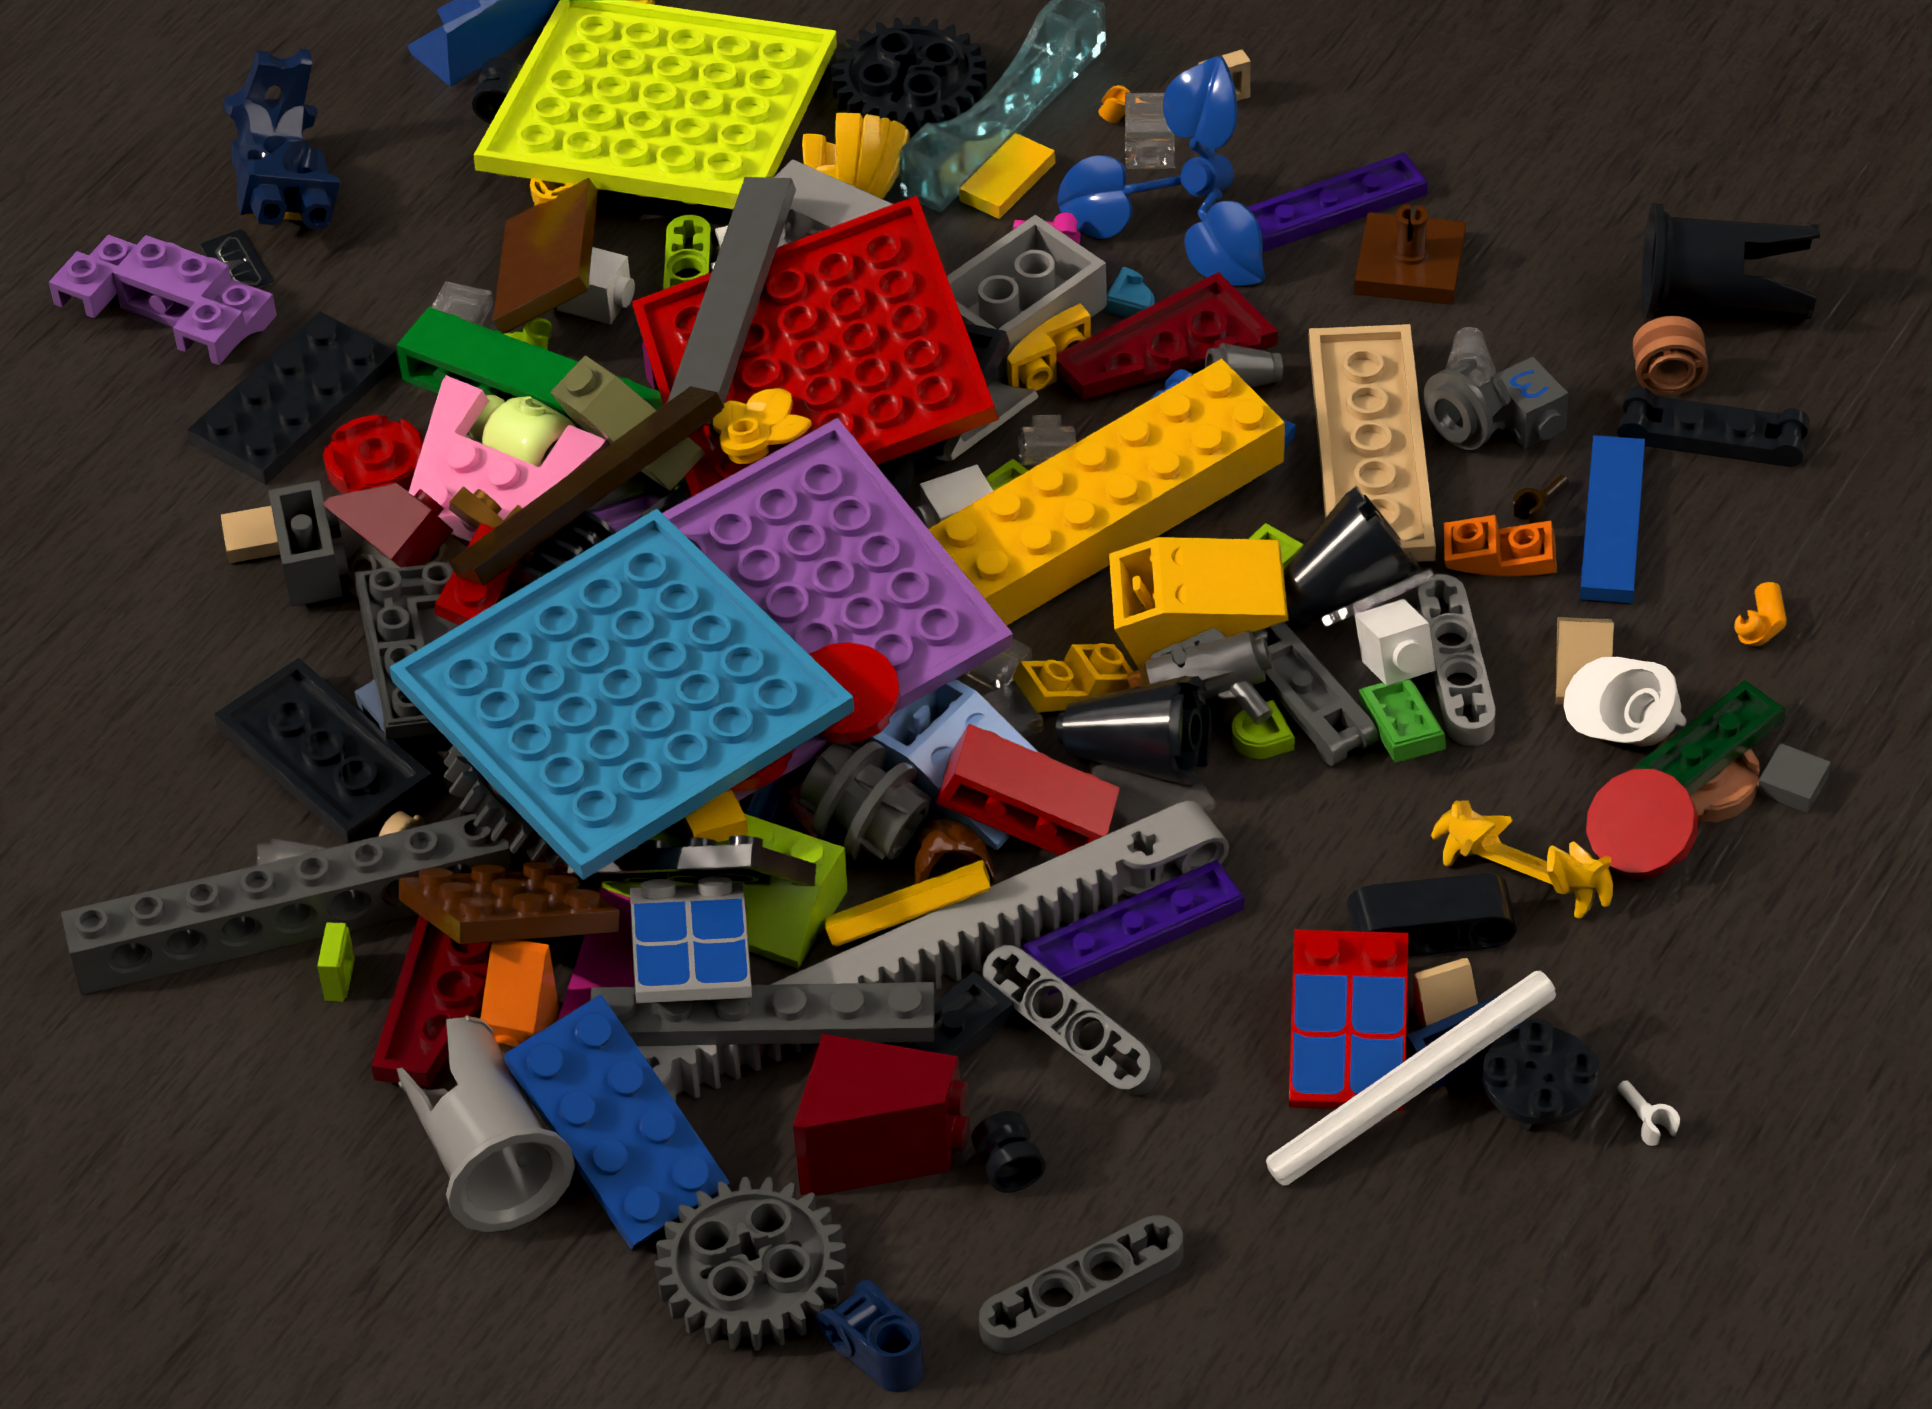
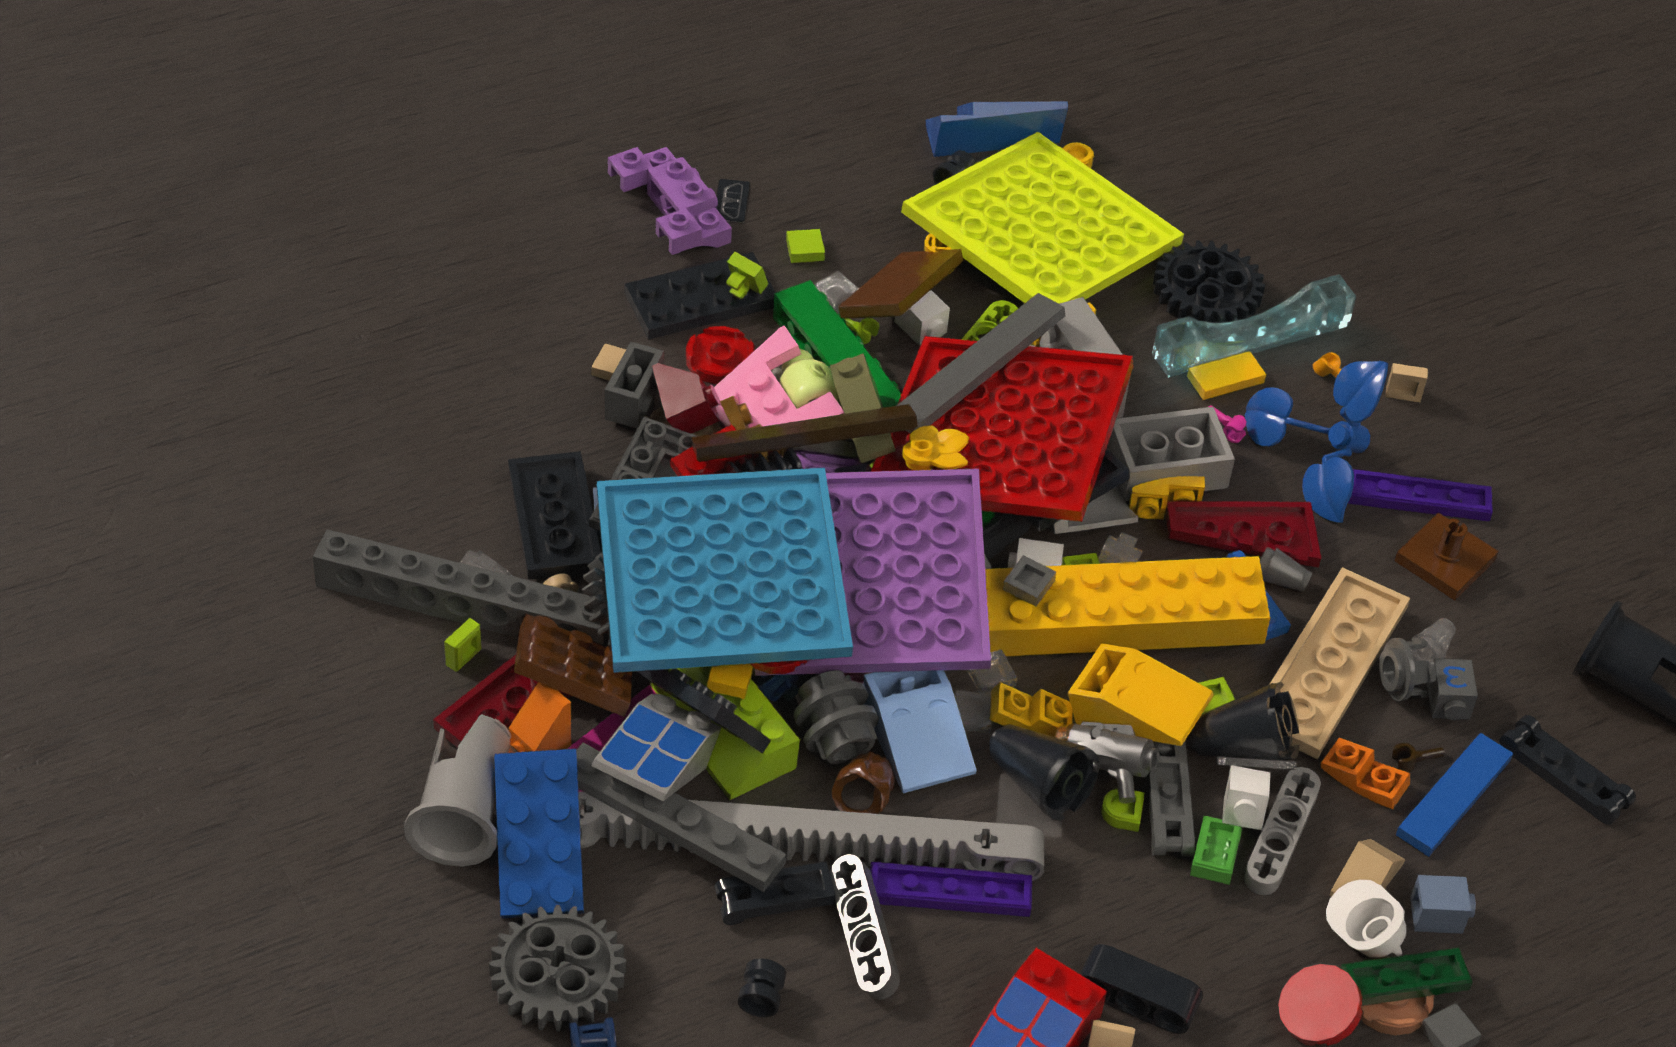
camera: 25 degrees right, 0 degrees up
(273, 164) = (791, 157): dark blue hips -> none
(344, 340) = (745, 275): none -> lime tile
(377, 272) = (805, 245): none -> lime tile
(862, 154) = (1132, 317): yellow hair -> none
(870, 682) = (874, 644): red tile -> none
(877, 1115) = (691, 918): dark red slope -> none
(908, 903) = (816, 796): yellow tile -> none
(981, 522) = (1029, 580): none -> dark grey tile
(1025, 793) = (937, 766): red brick -> none
(1128, 294) = (1247, 487): dark azure tile -> none
(1147, 135) = (1321, 397): clear brick -> none
(1566, 872) = (1209, 956): yellow piece -> none
(1670, 355) = (1568, 707): nougat wheel -> none
(1689, 643) = (1441, 904): none -> sand blue brick
(1769, 619) = (1510, 917): light orange arm -> none

